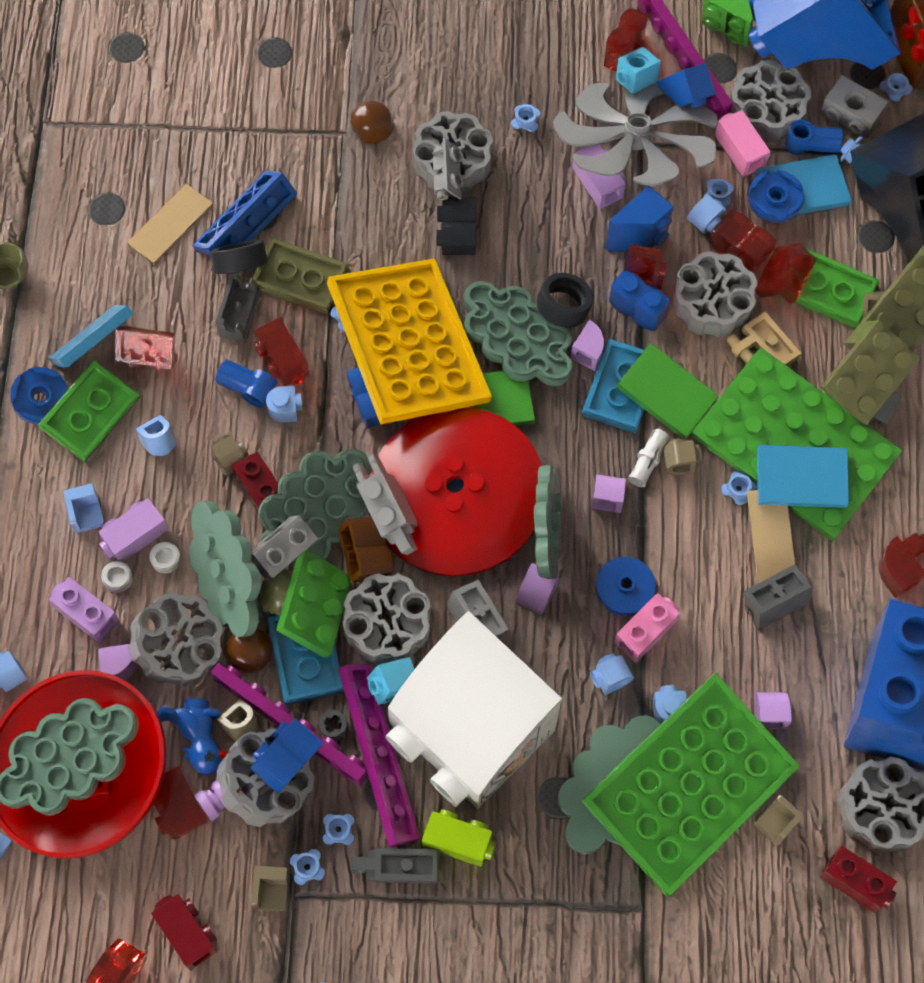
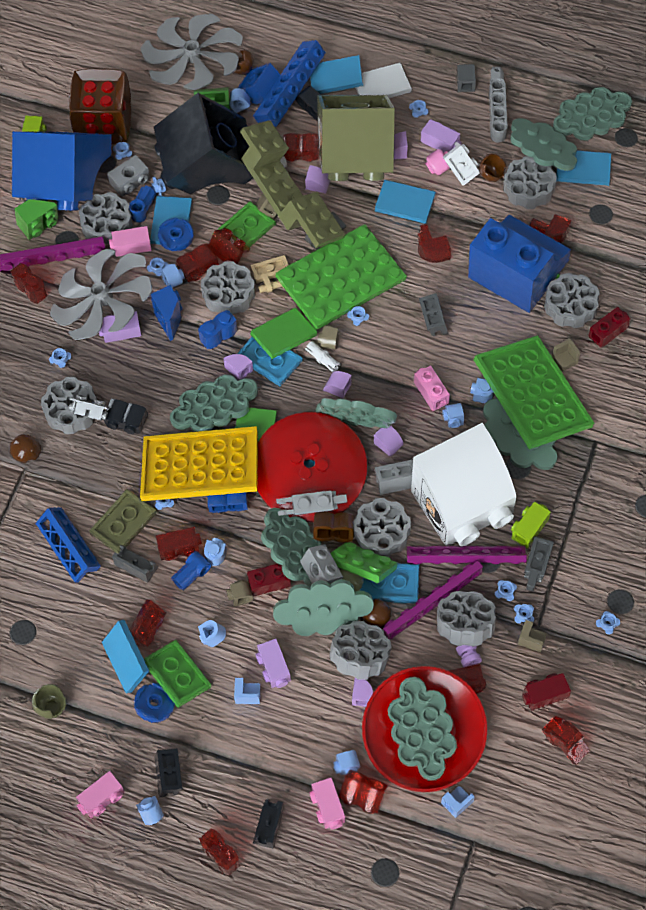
camera: 70 degrees left, 5 degrees down
(83, 609) = (318, 706): lavender brick -> none
(117, 576) = (300, 683): white tile -> none
(165, 557) = (296, 650): white tile -> none
(170, 223) = (51, 593): tan piece -> none
(196, 724) = (417, 653): blue animal -> none
(239, 257) = (102, 548): black tyre -> none
(239, 720) = (424, 627): dark tan plate -> none
(286, 754) = (460, 597): blue brick -> none
(330, 716) = (439, 571): dark grey bush -> none
(388, 679) = (424, 532): medium azure brick -> none
(572, 286) = (206, 378): black tyre -> none
(619, 599) = (398, 401): blue plate -> none
(637, 70) = (54, 282): medium azure brick -> none
(647, 264) = (199, 314): clear red bracket -> none
(688, 86) = (80, 257): blue slope -> none
(770, 537) = (393, 307): tan piece -> none
(773, 709) = (499, 337): lavender brick -> none
(802, 476) = (366, 277): dark azure tile -> none

